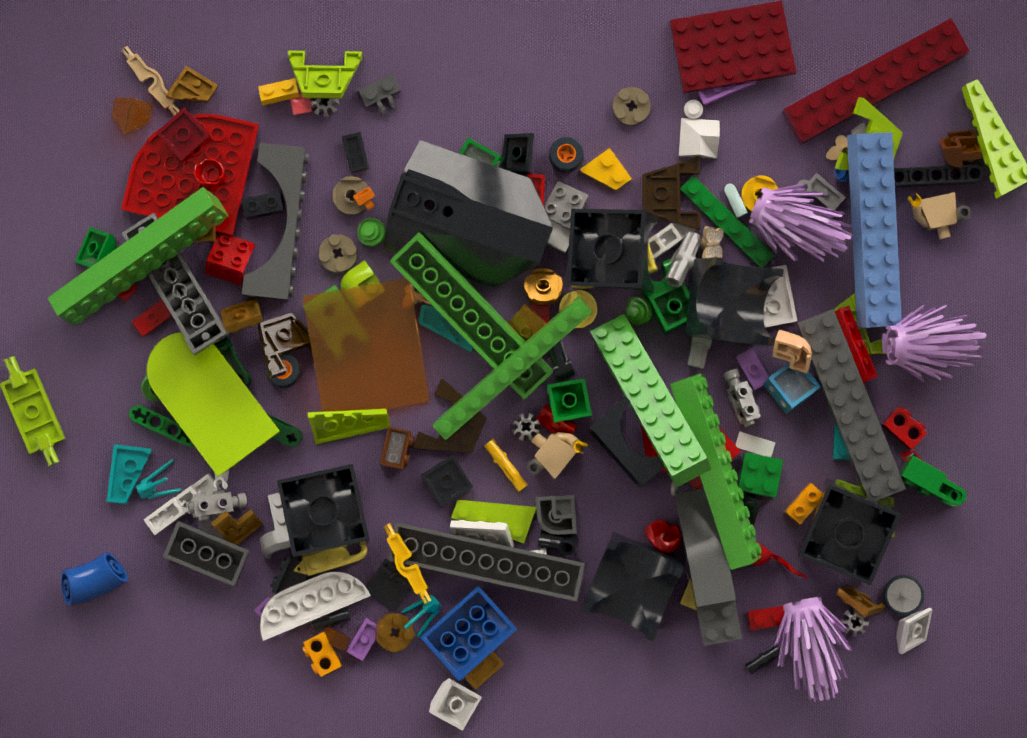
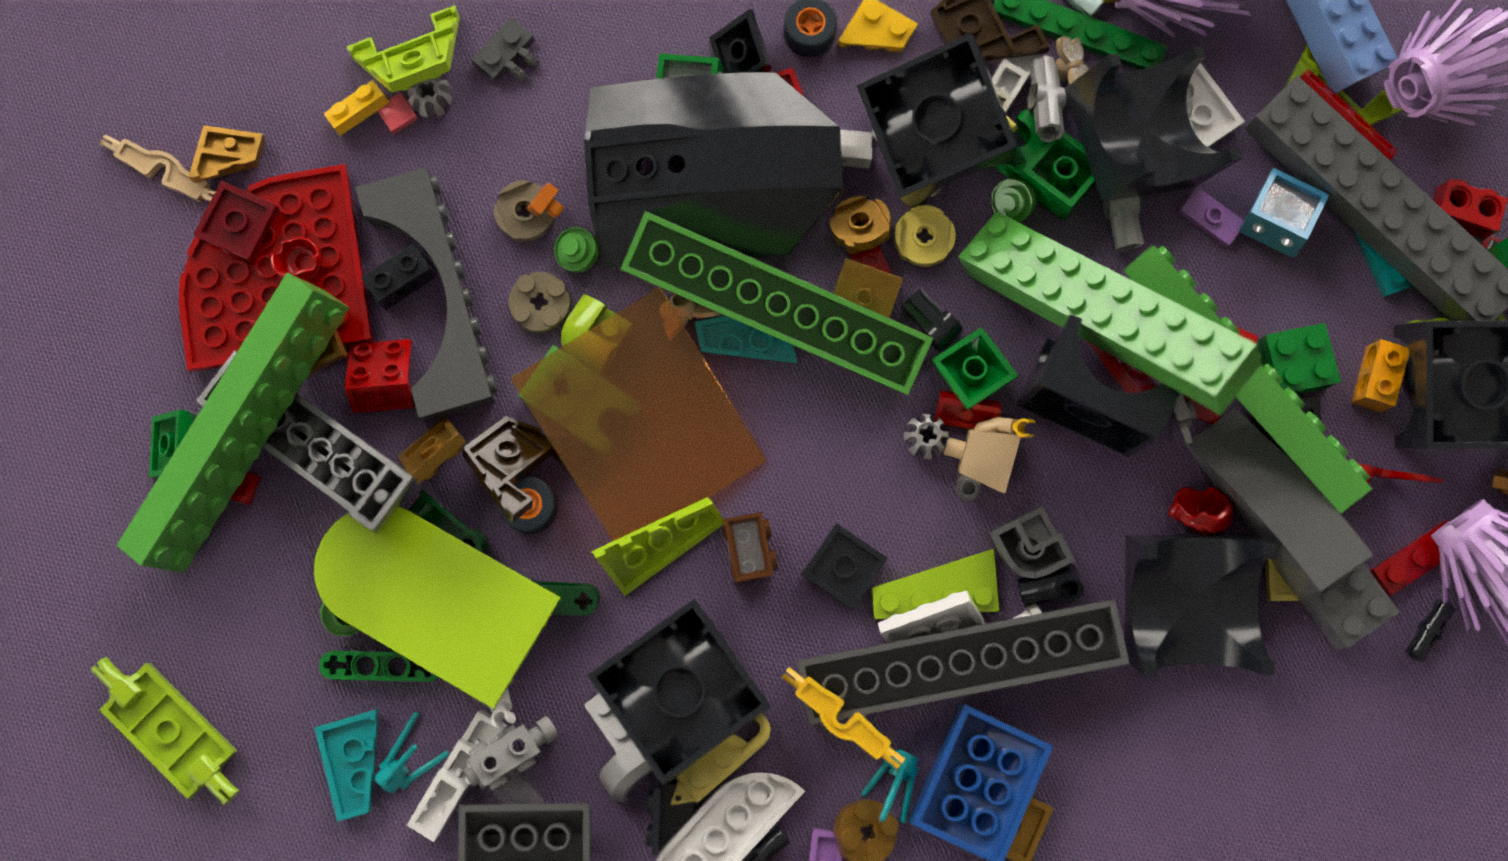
camera: 25 degrees left, 5 degrees down
(131, 113) = (149, 224): clear orange slope -> none
(152, 318) = (299, 512): red plate -> none
(238, 530) = (560, 779): pearl gold plate -> none
(355, 152) = (505, 148): black plate -> none
(389, 585) = (826, 762): black hinge -> none
(460, 441) = (829, 478): dark brown wing -> none
(504, 463) = (911, 500): yellow pin -> none
(512, 367) = (873, 350): bright green brick -> none
(562, 201) = (838, 97): light grey hinge -> none
(745, 402) = (1224, 264): light grey brick -> none
(755, 444) = (1266, 321): white sticker -> none
(793, 349) = (1272, 155): light nougat brick -> none

